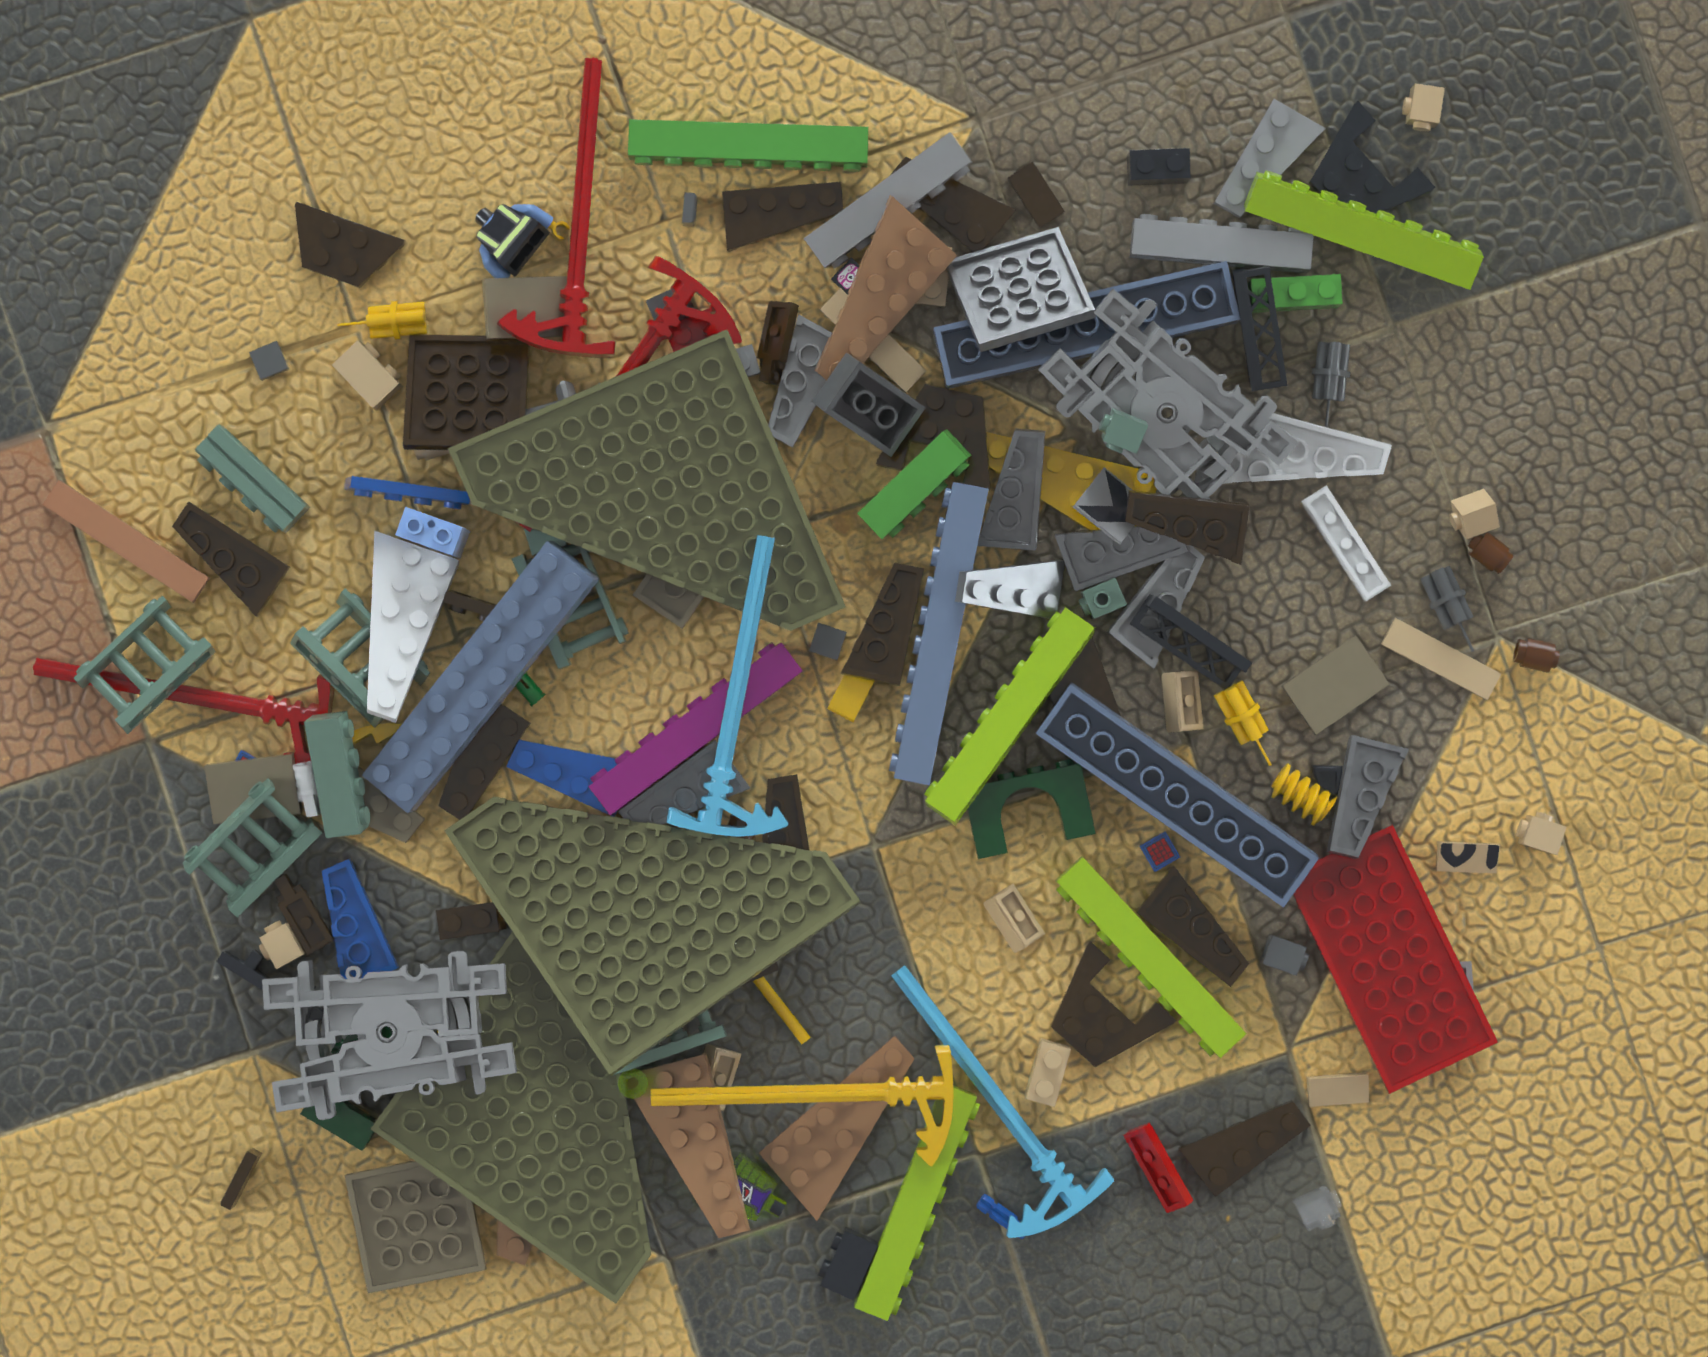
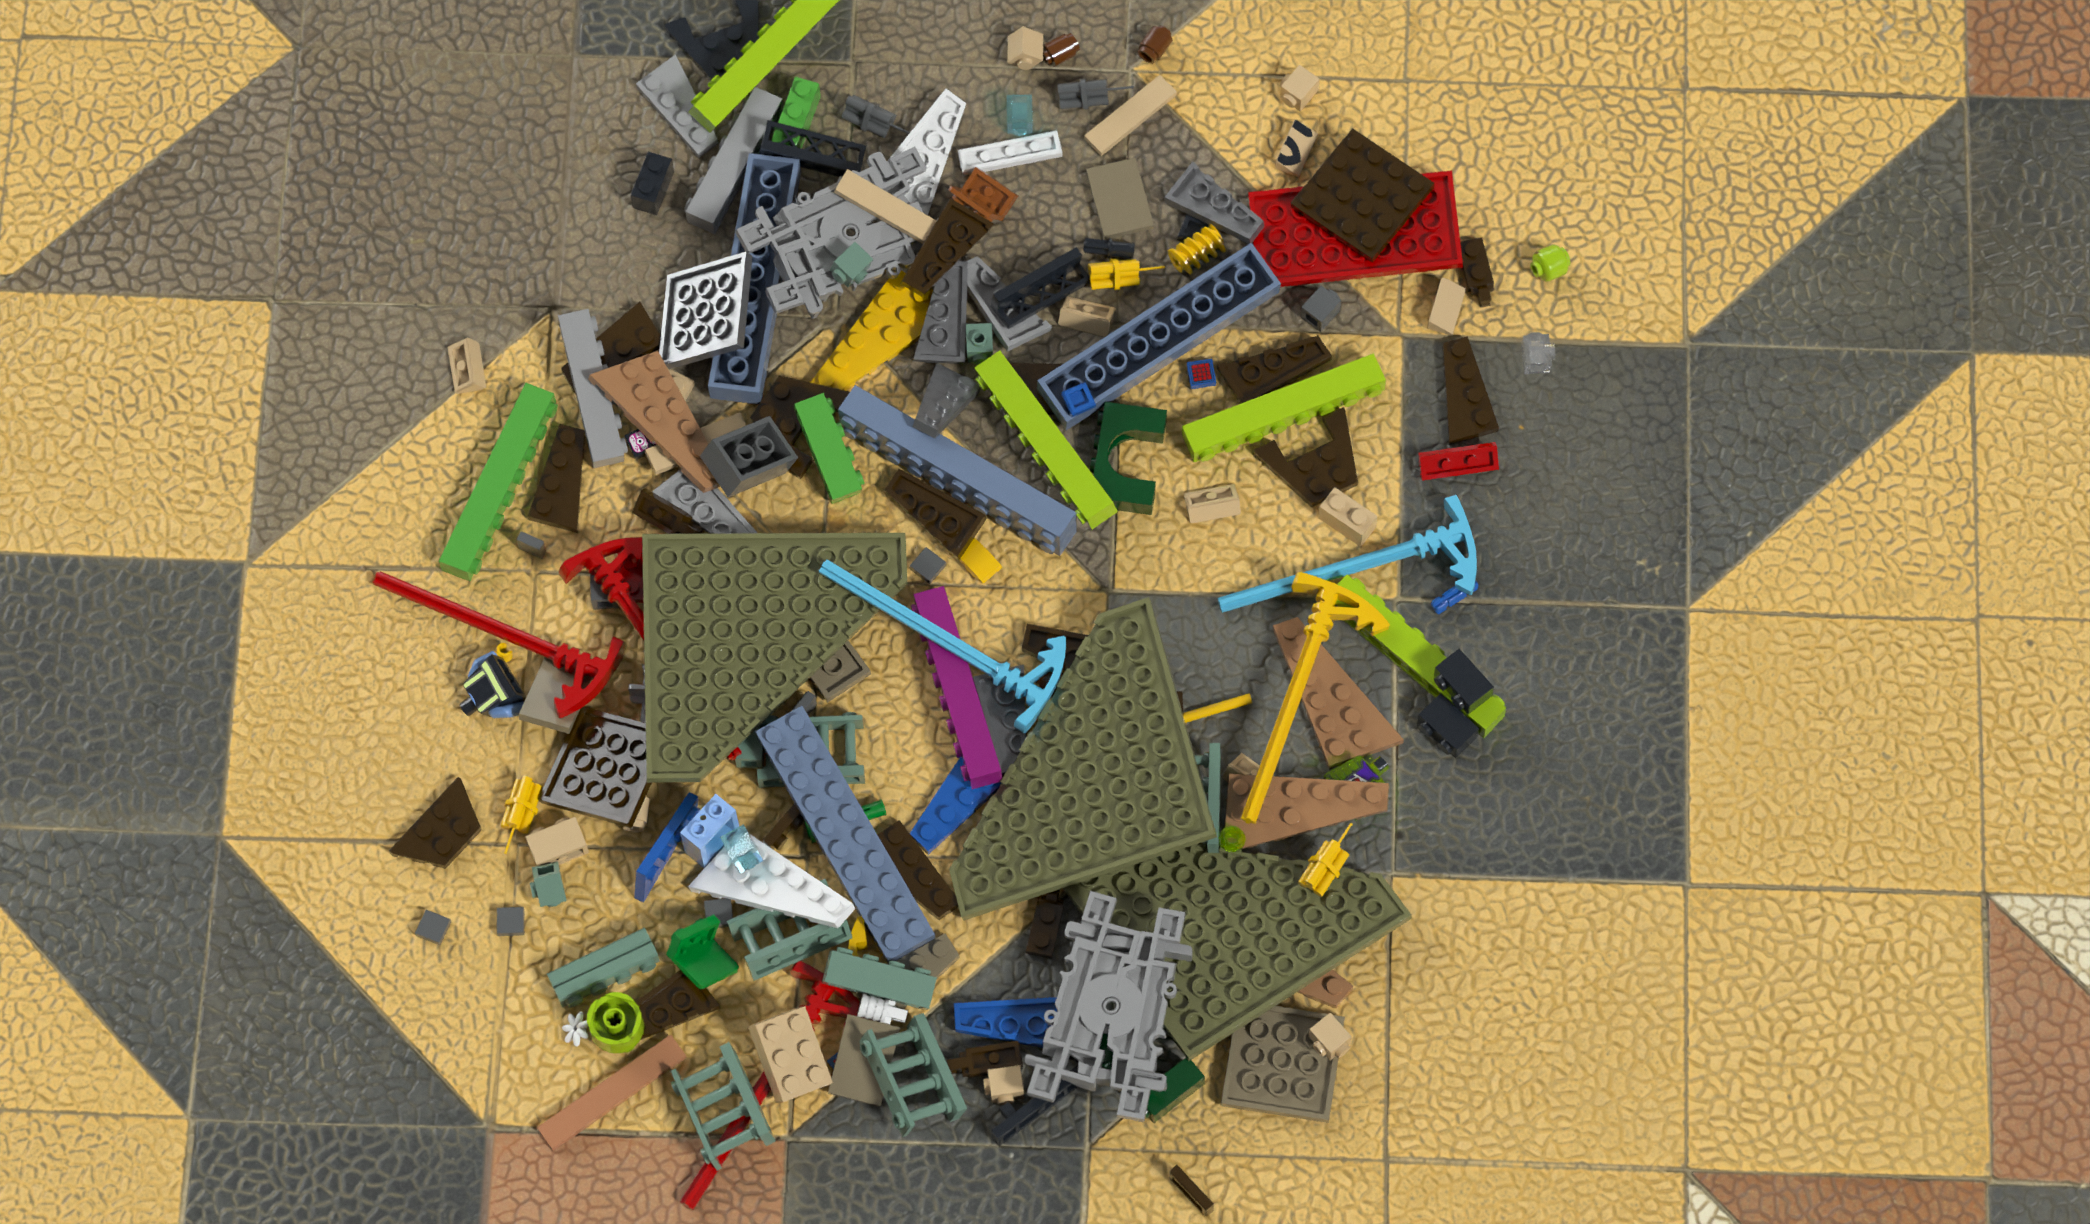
camera: 65 degrees left, 20 degrees down
(174, 507) = (606, 1011): none -> lime brick
(178, 477) = (576, 1029): none -> white plant
(222, 713) = (790, 1054): none -> tan brick
(232, 282) = (433, 927): none -> dark grey tile
(298, 578) = (699, 954): none -> green bracket
(317, 385) = (548, 885): none -> sand green brick
(357, 573) = (721, 909): none -> dark grey tile
(422, 575) = (742, 849): none -> clear light blue brick
(450, 1266) = (1330, 1038): none -> tan brick
(615, 574) = (808, 702): none -> dark grey tile
(633, 1194) = (1324, 866): none -> yellow piece
(871, 53) = (466, 366): none -> tan slope
(894, 1268) = (1463, 682): none -> black brick
(1016, 499) = (867, 371): flat silver wing -> none
(1036, 195) = (634, 283): dark brown tile -> none
(1064, 737) = (1078, 399): none -> blue tile
(1106, 504) = (906, 307): piece -> none
(1211, 439) = (885, 206): none -> tan tile
(1270, 696) = (1109, 248): none -> black axle
(1276, 536) = (985, 195): none -> dark orange bracket
(1393, 537) = (1019, 114): none -> clear light blue brick
(1394, 1108) = (1477, 270): none -> dark brown hinge
(1431, 954) = (1362, 195): none -> dark brown plate
(1431, 1186) = (1550, 263): none -> lime head

